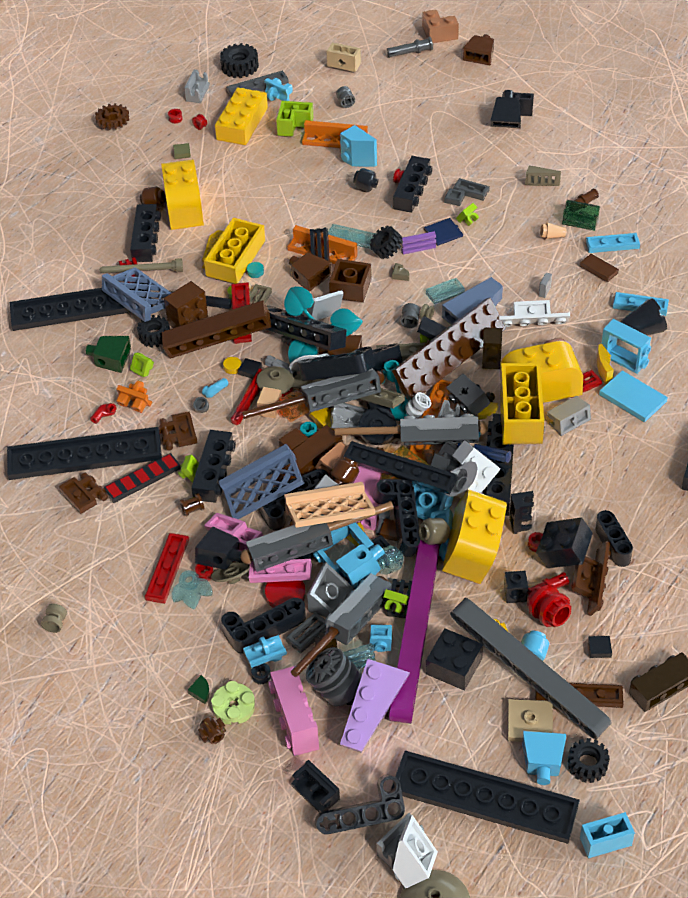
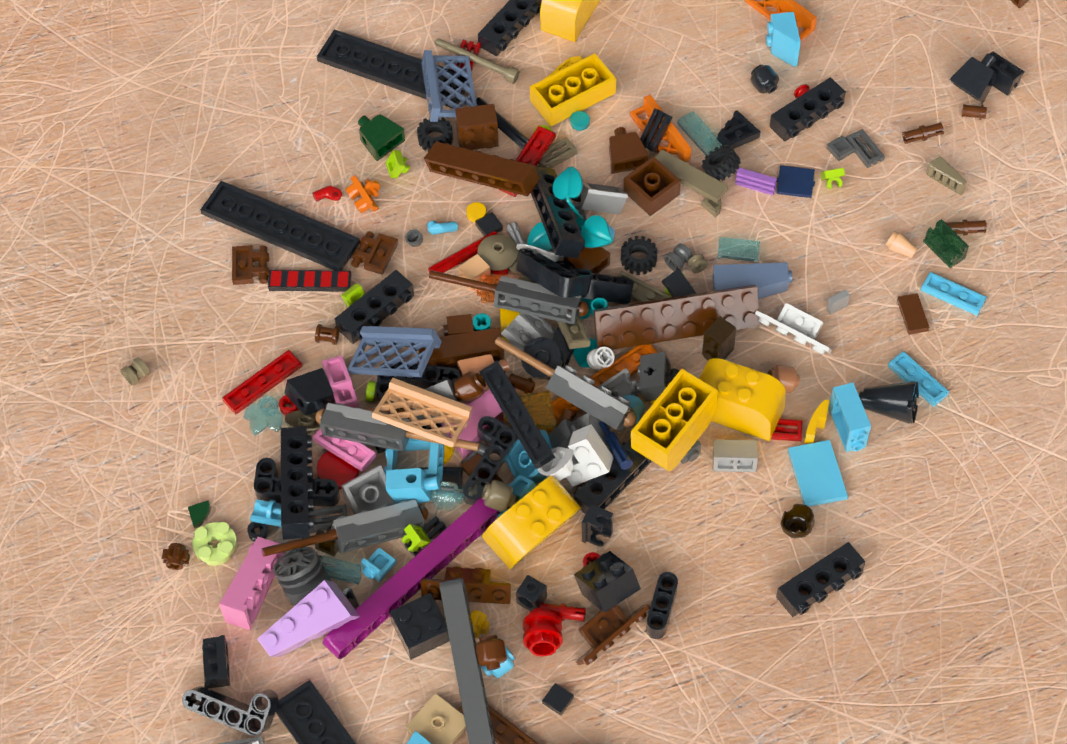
camera: 35 degrees right, 10 degrees up
(263, 523) = (370, 392): none -> lime tile
(271, 613) = (295, 483): none -> black brick
(376, 219) = (738, 131): none -> black wing
(378, 261) = (693, 177): none -> dark tan tile
(383, 336) = (639, 245): none -> black tyre
(487, 602) = (477, 585): none -> reddish brown bracket
(501, 161) = (923, 133): none -> reddish brown pin
(522, 133) = (974, 111): none -> reddish brown pin
(532, 636) = (490, 652): none -> reddish brown head
(653, 429) = (798, 521): none -> dark brown hair

